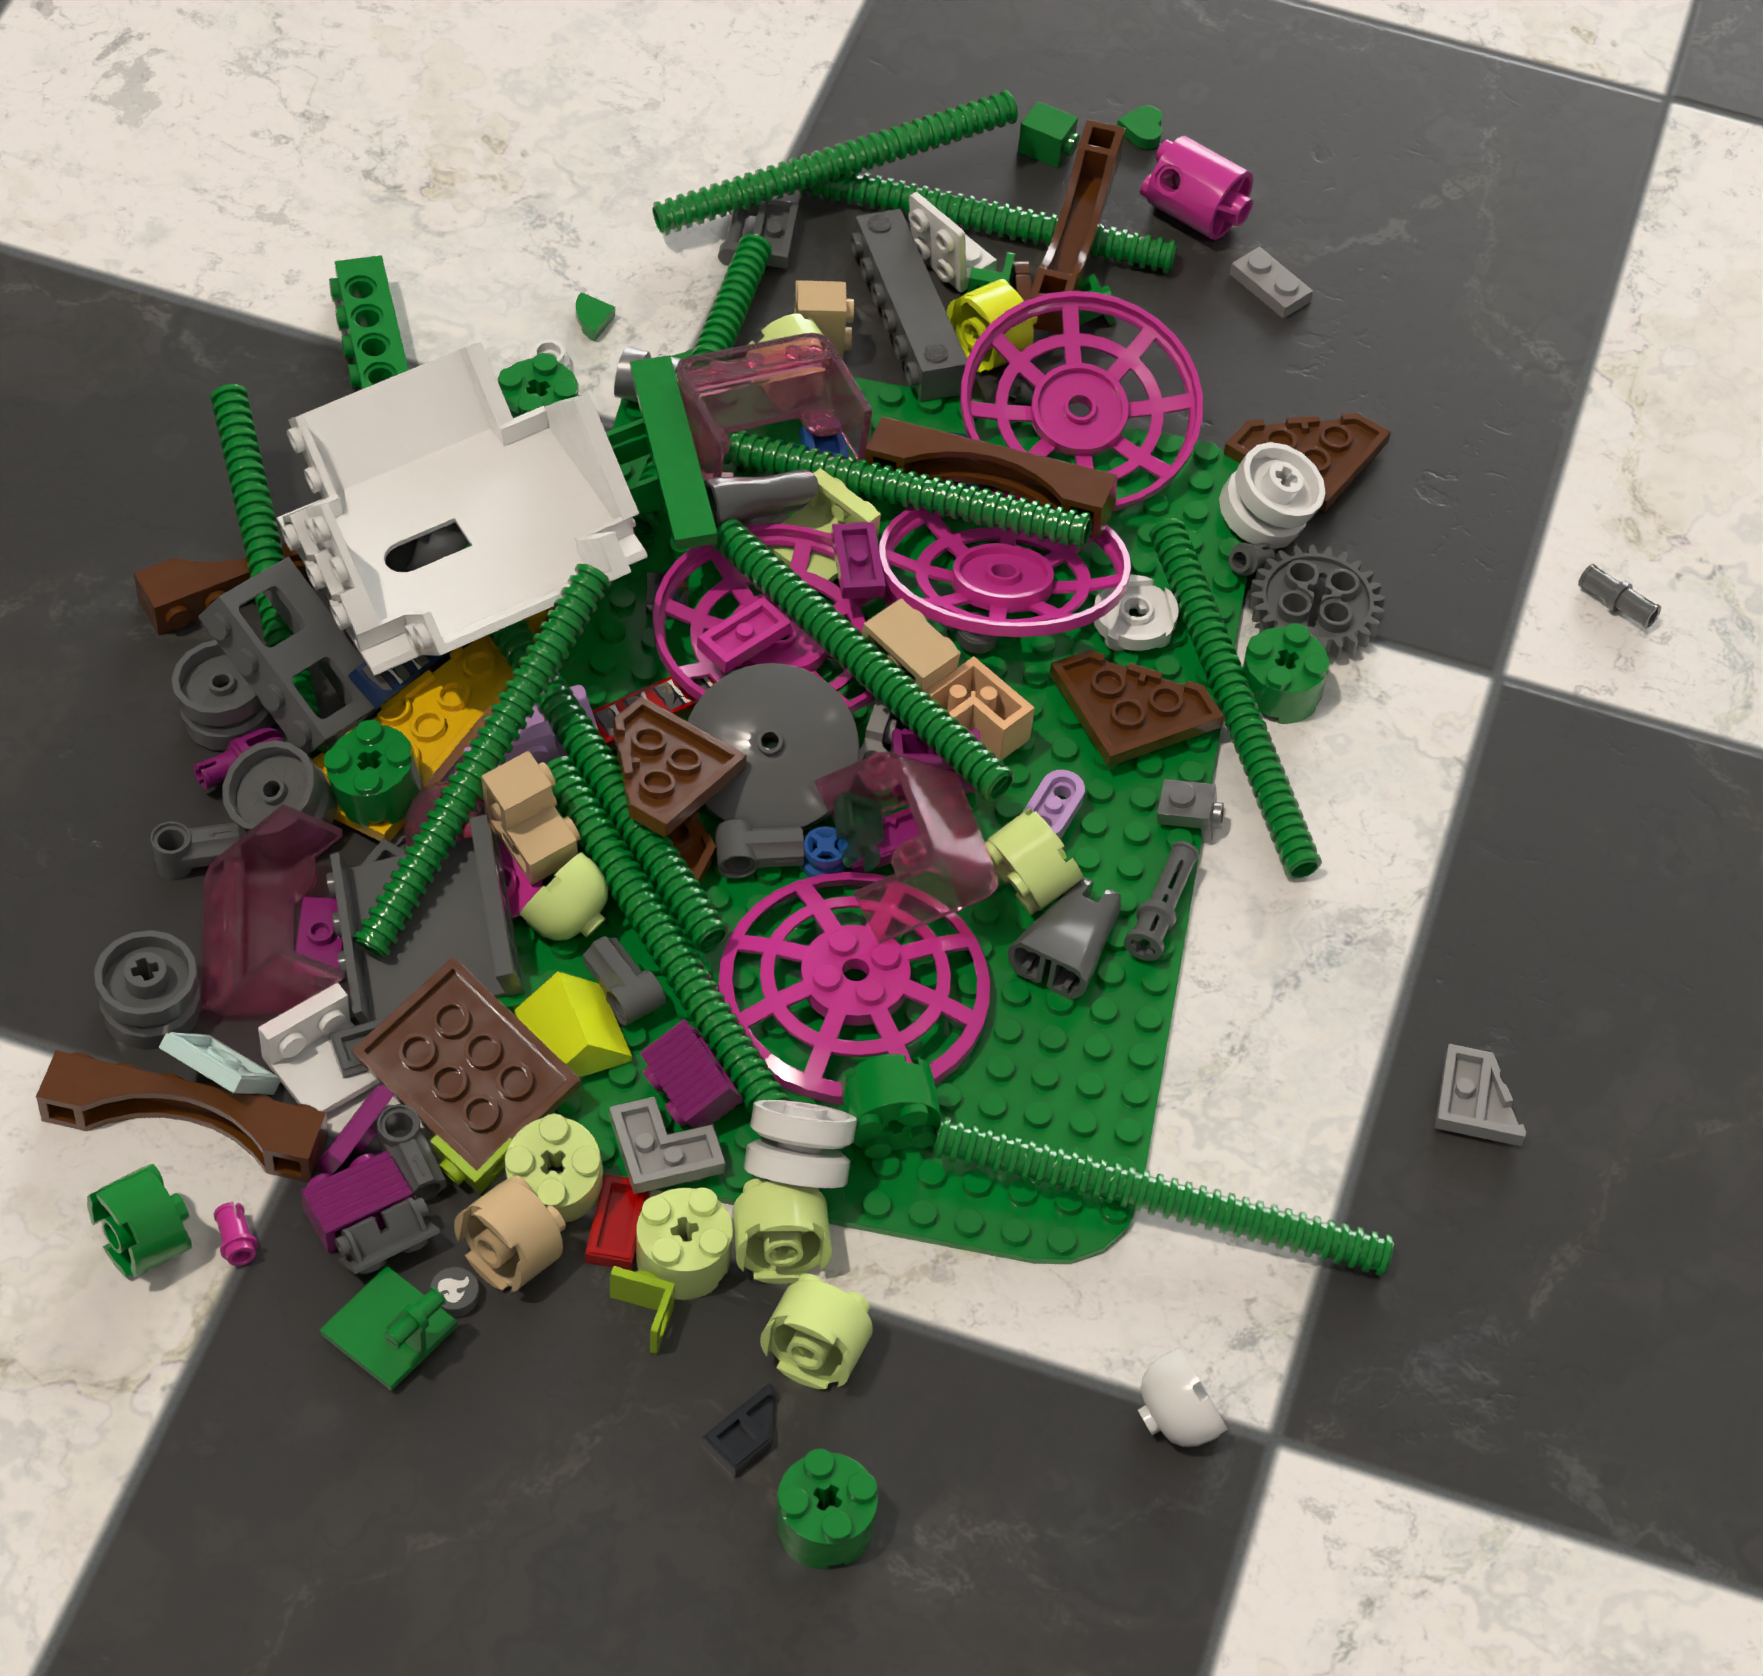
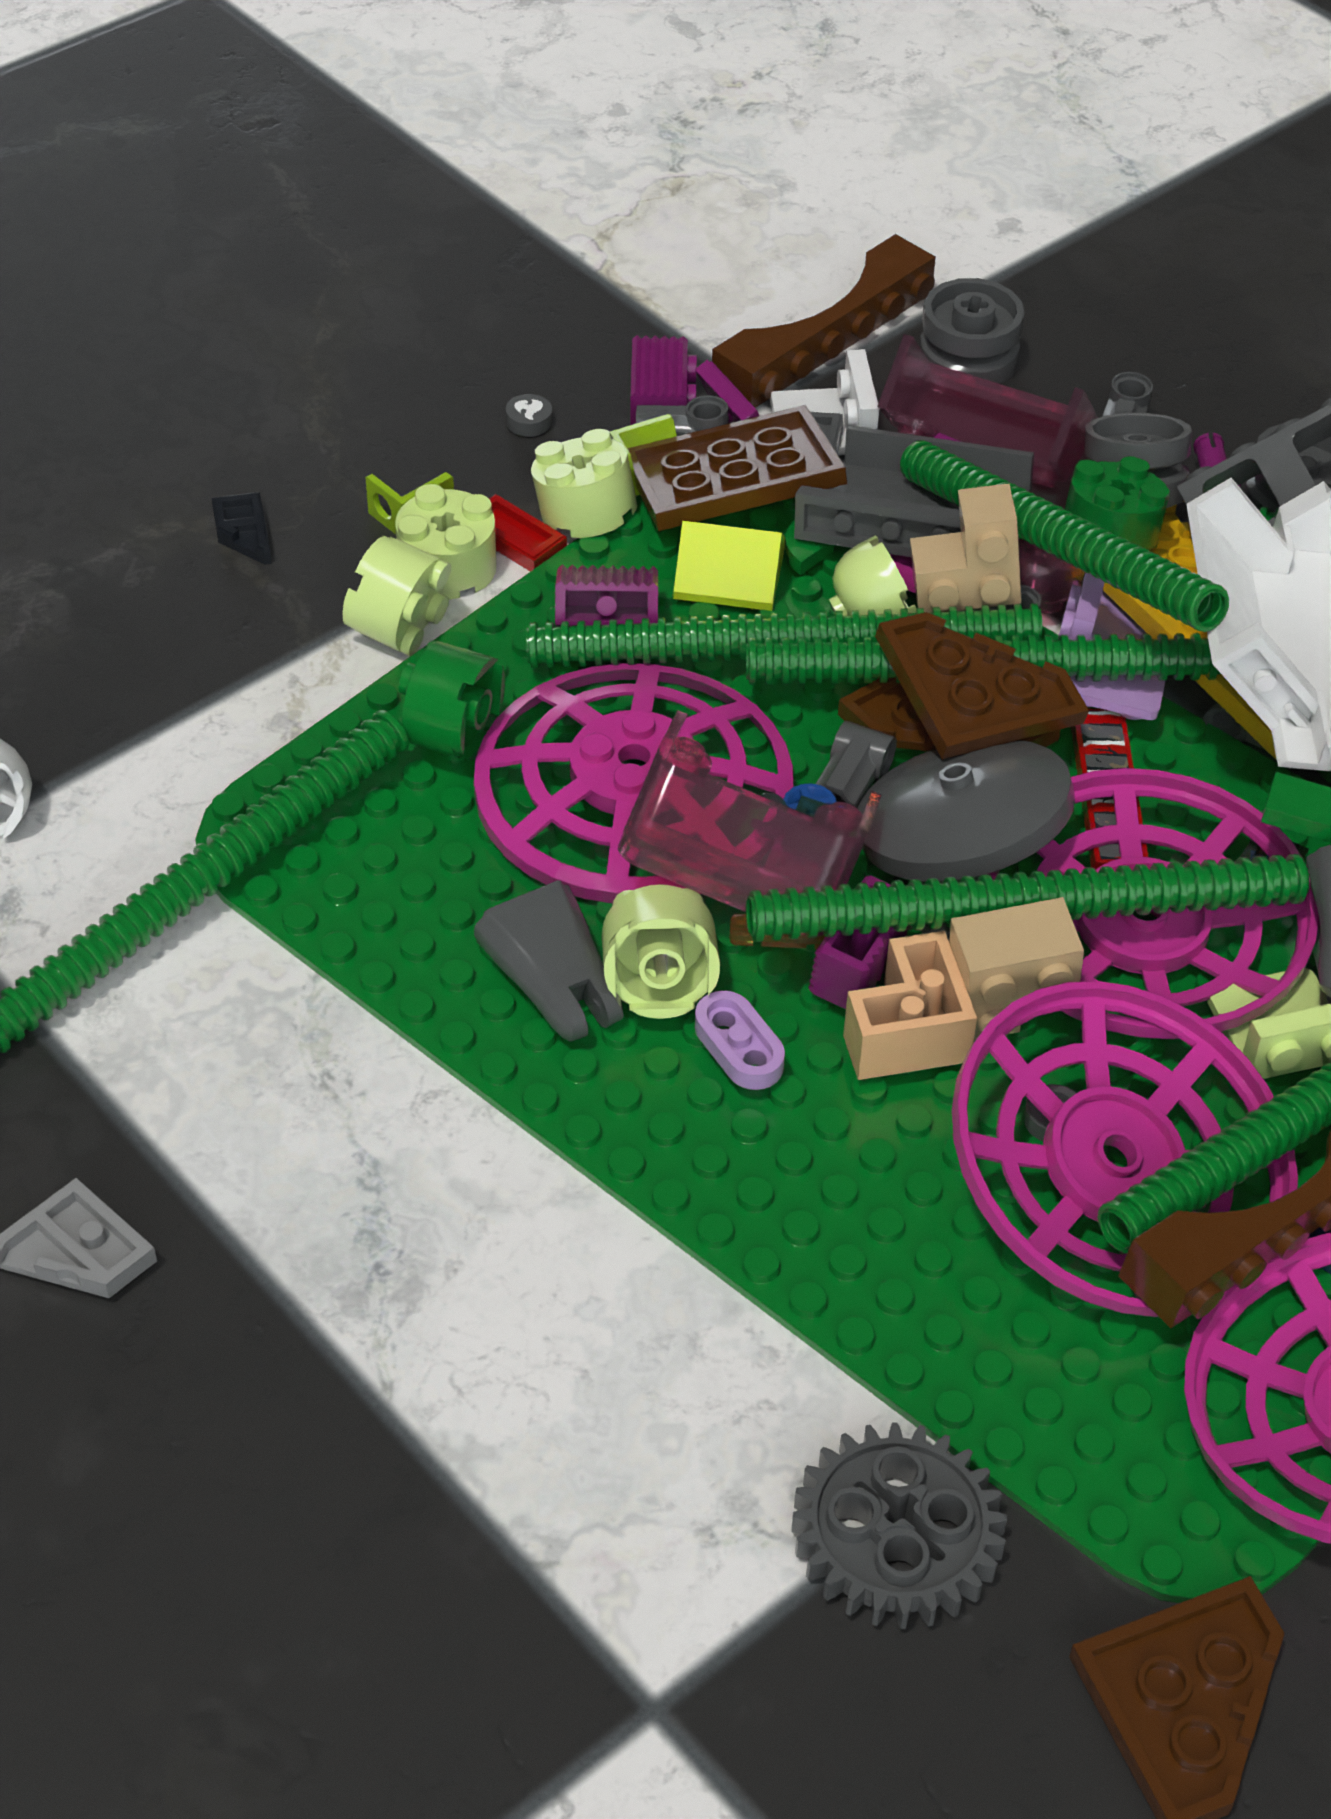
camera: 125 degrees right, 5 degrees down
(140, 1221) = (727, 249): green brick -> none
(220, 1063) = (851, 322): light aqua tile -> none
(237, 1244) = (686, 315): dark pink pin -> none
(390, 1327) = (522, 362): green plate -> none
(404, 1233) = (606, 383): dark grey hinge -> none
(510, 1234) = (527, 417): tan brick -> none
(626, 987) = (735, 595): dark grey piece -> none
(661, 1159) = (541, 550): light grey plate -> none
(744, 634) = (1128, 823): dark pink plate -> none
(800, 1144) = (456, 598): white wheel -> none
(817, 1332) = (274, 571): yellowish green brick -> none
(826, 1509) = (115, 519): green brick -> none
(858, 560) = (1199, 984): magenta plate -> none
(1132, 706) = (841, 1195): reddish brown plate -> none
(1144, 632) = (975, 1310): white plate -> none
(1180, 864) = (526, 1057): dark grey pin -> none
(1191, 806) = (653, 1183): flat silver bracket -> none
(1235, 699) = (797, 1313): green piece -> none
(1246, 559) = (1016, 1479): dark grey pin -> none
(1272, 495) = (1095, 1509): white wheel -> none
(1286, 672) = (793, 1396): green brick -> none

